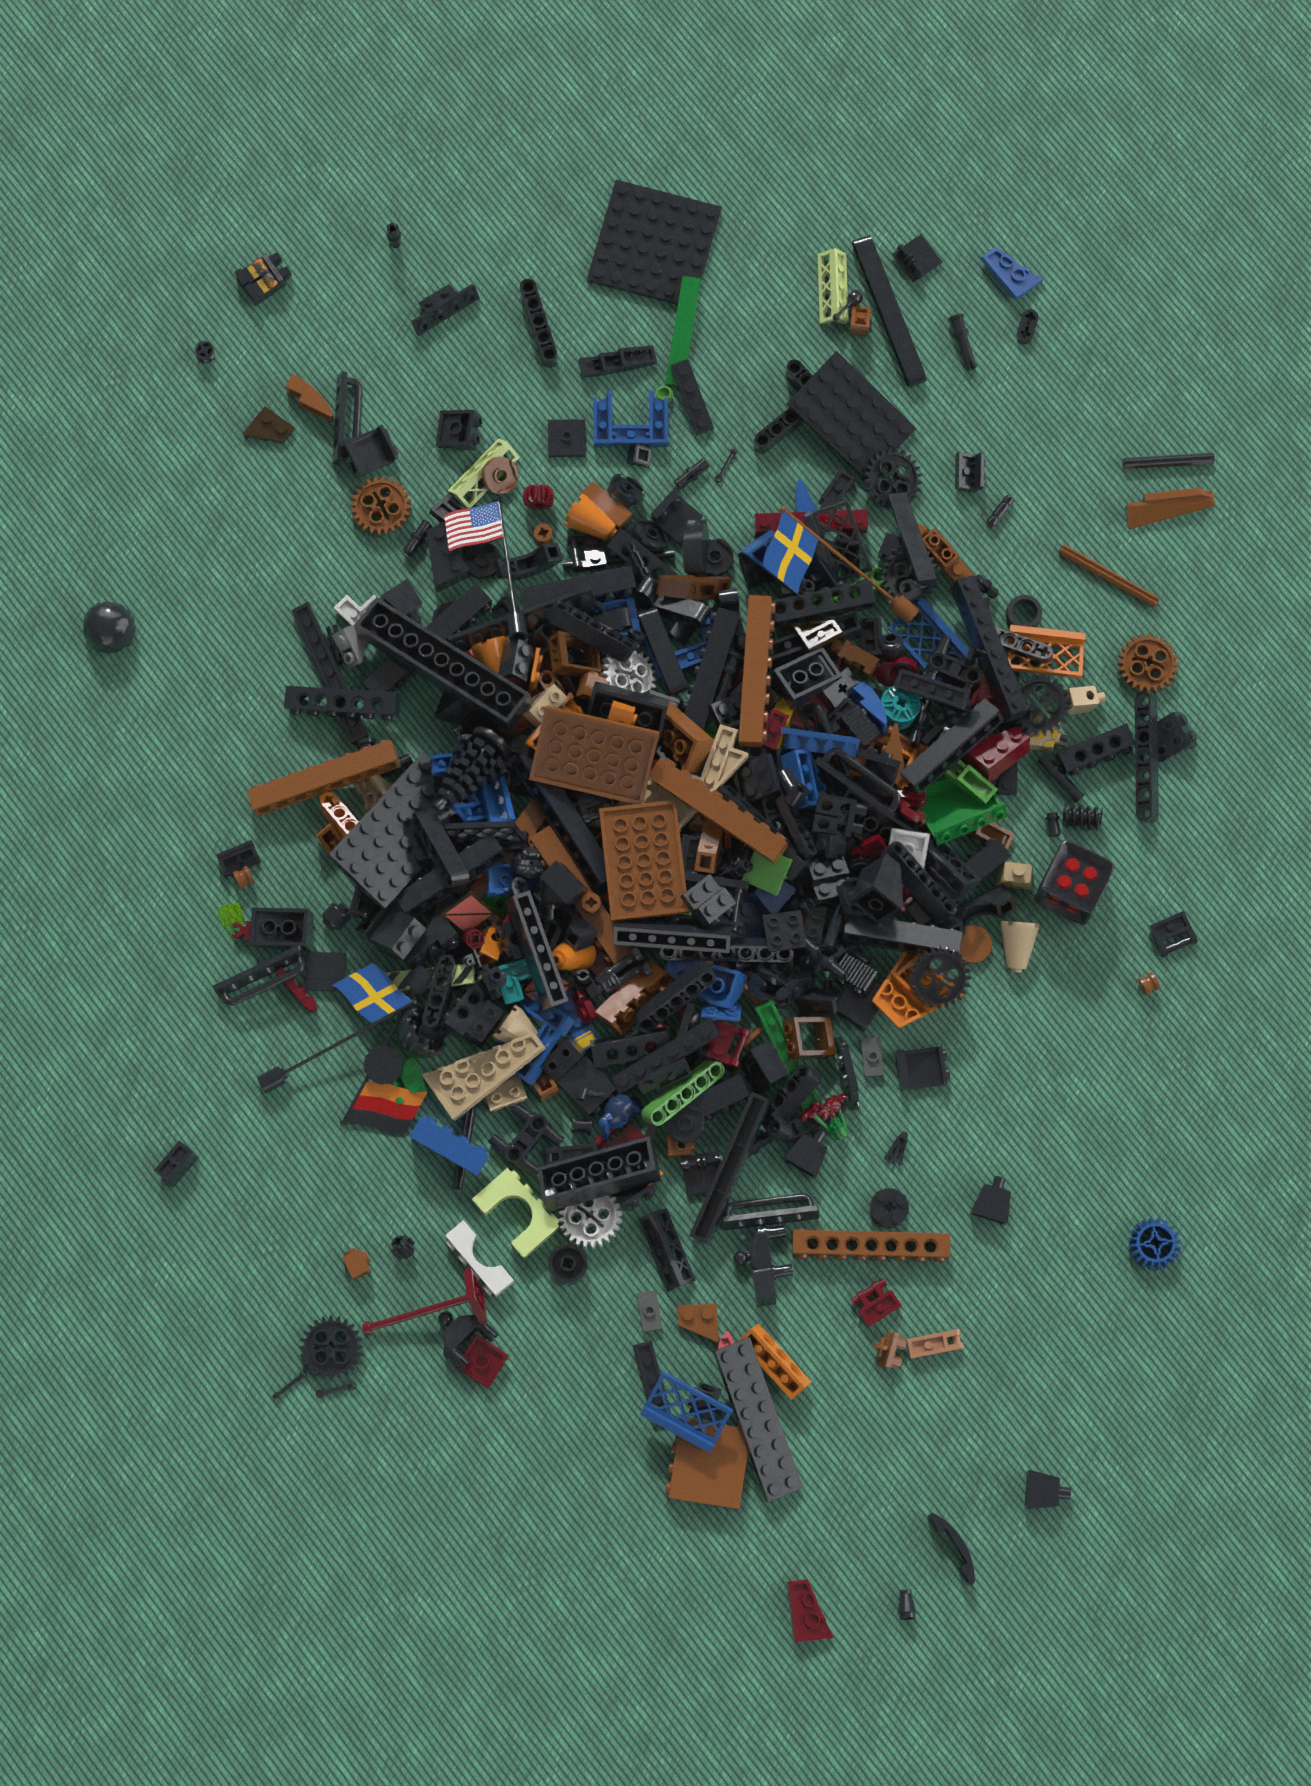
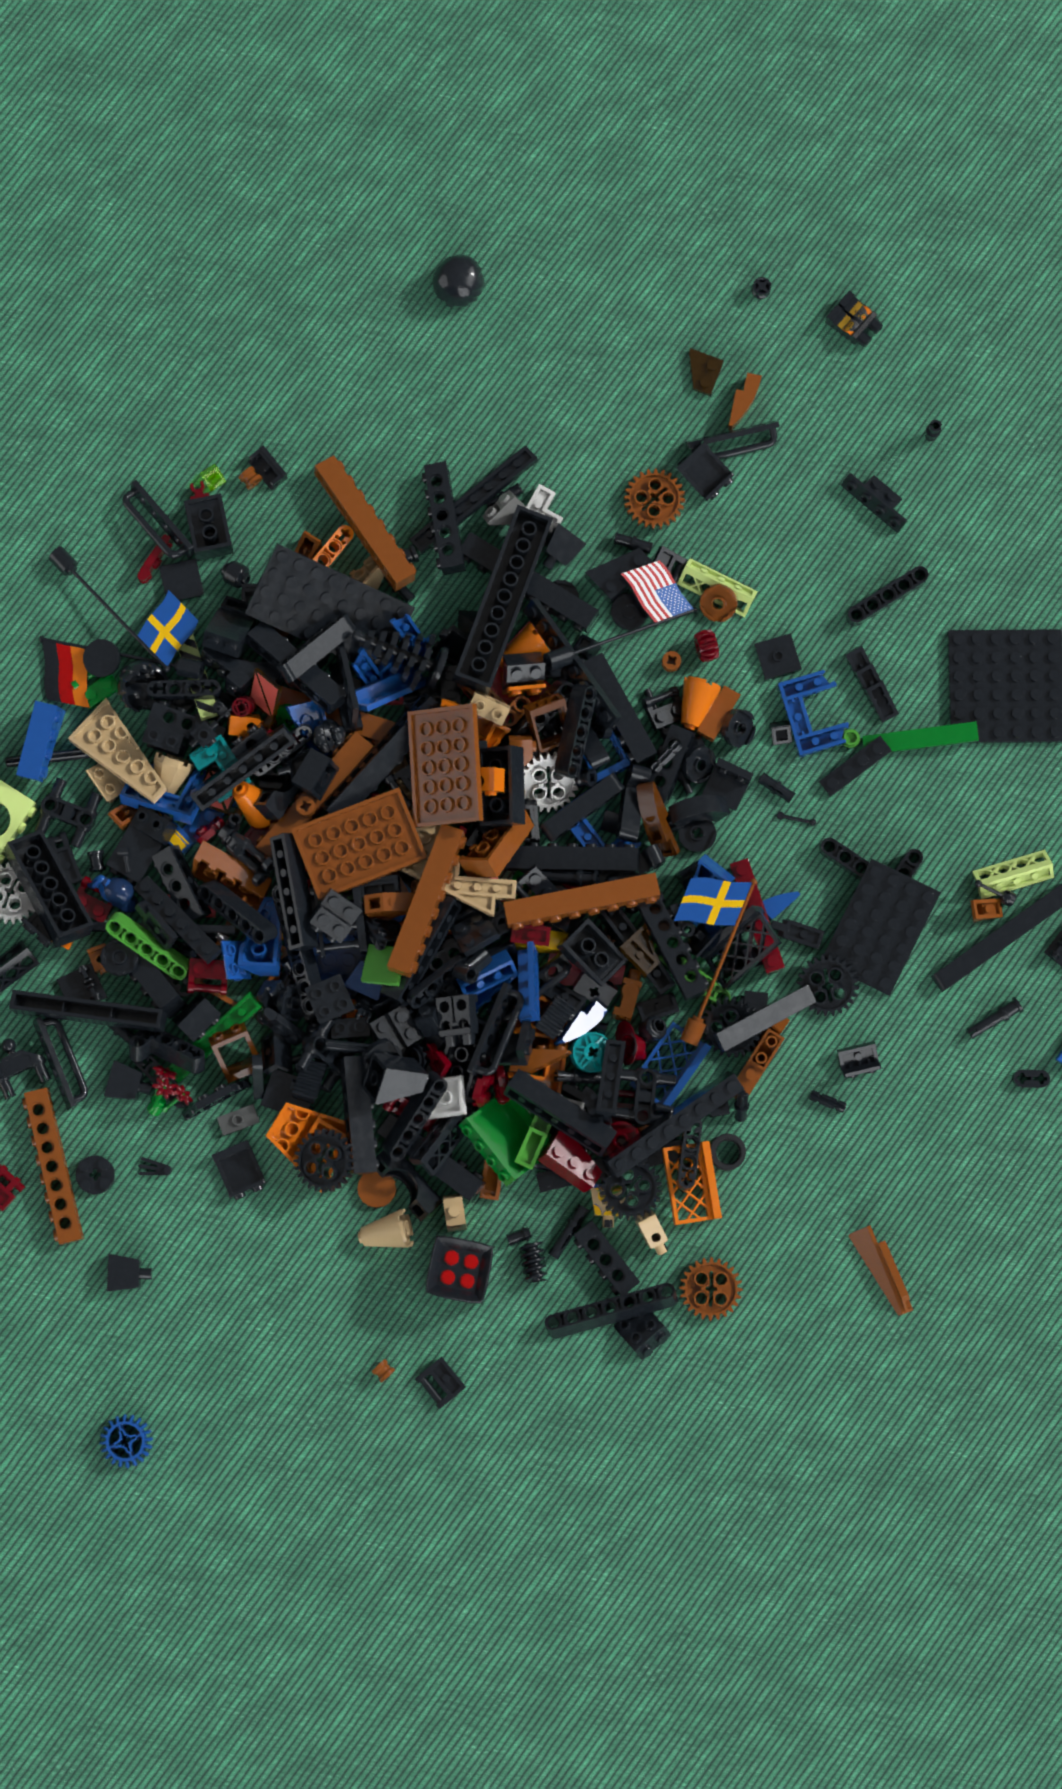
camera: 75 degrees right, 5 degrees up
(458, 429) = (753, 550): black plate -> none
(530, 564) = (636, 656): black arch -> none
(838, 1023) = (257, 1076): none -> black beam
(1109, 575) = (792, 1227): dark orange axle -> none
(1169, 460) = (931, 1257): black axle -> none

